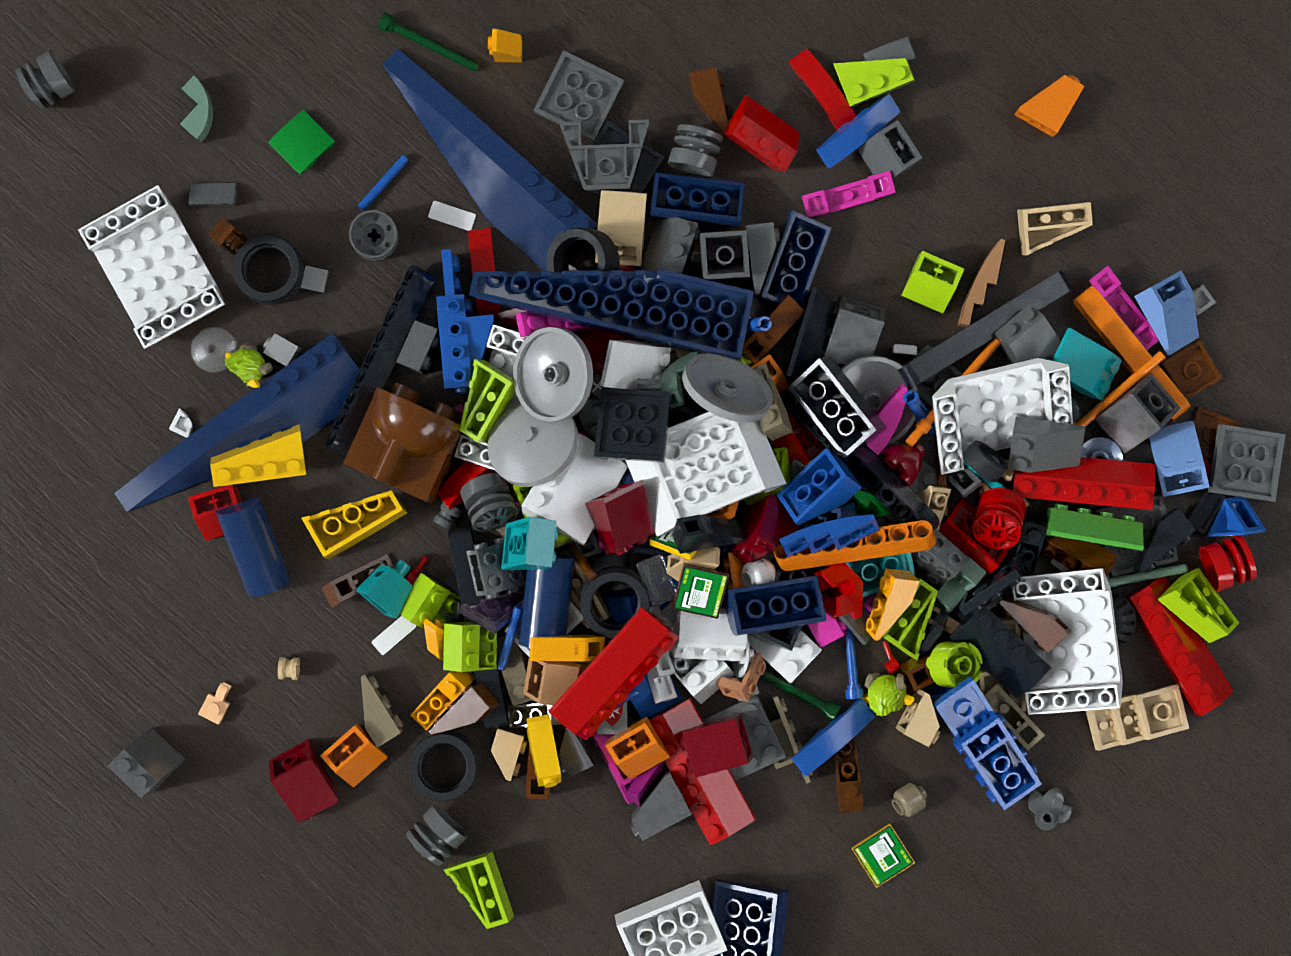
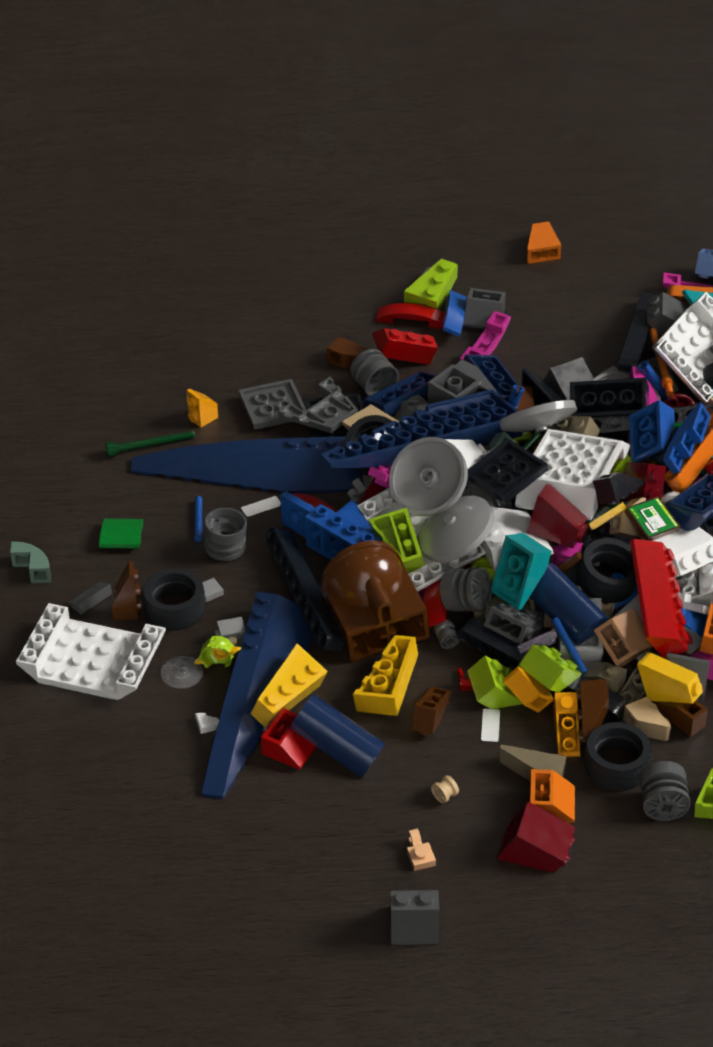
camera: 40 degrees left, 45 degrees down
(387, 588) = (458, 692): teal torso -> none
(419, 348) = (318, 557): dark grey slope -> none
(566, 647) = (613, 601): light orange slope -> none
(932, 282) = (582, 339): lime slope -> none
(985, 276) = (607, 323): medium nougat slope -> none
(1051, 223) = (608, 279): tan wedge -> none

